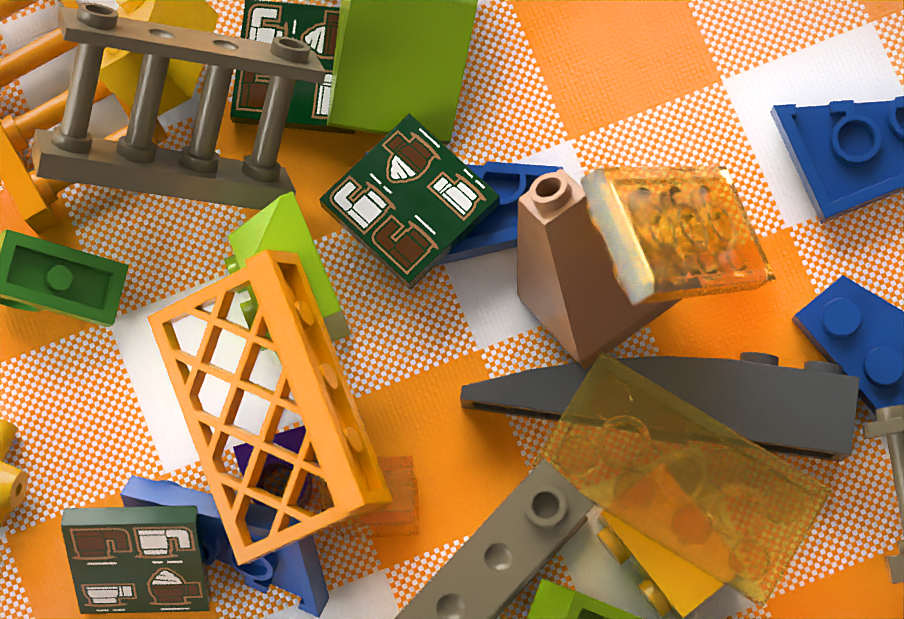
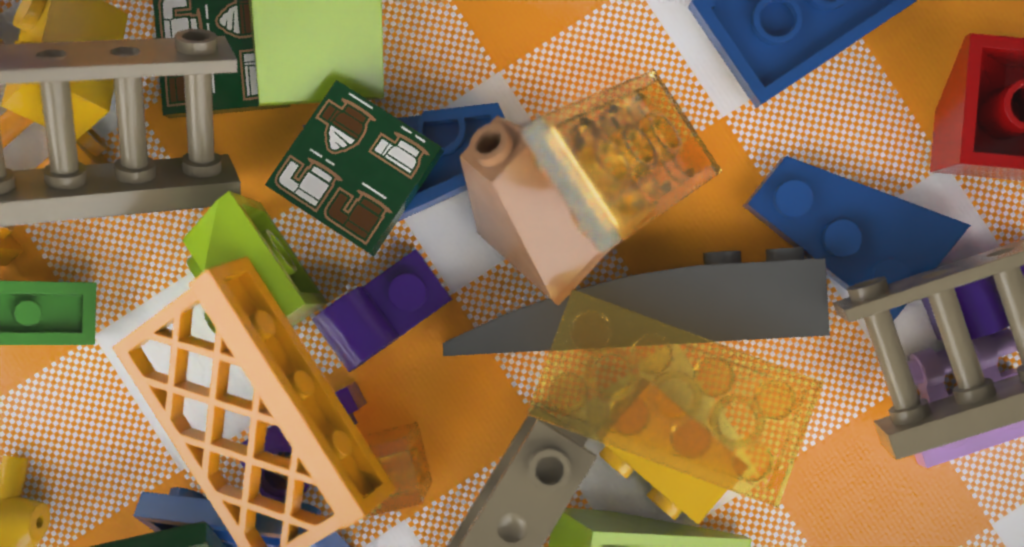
camera: 15 degrees left, 10 degrees up
(400, 352) = (381, 310): none -> dark purple plate

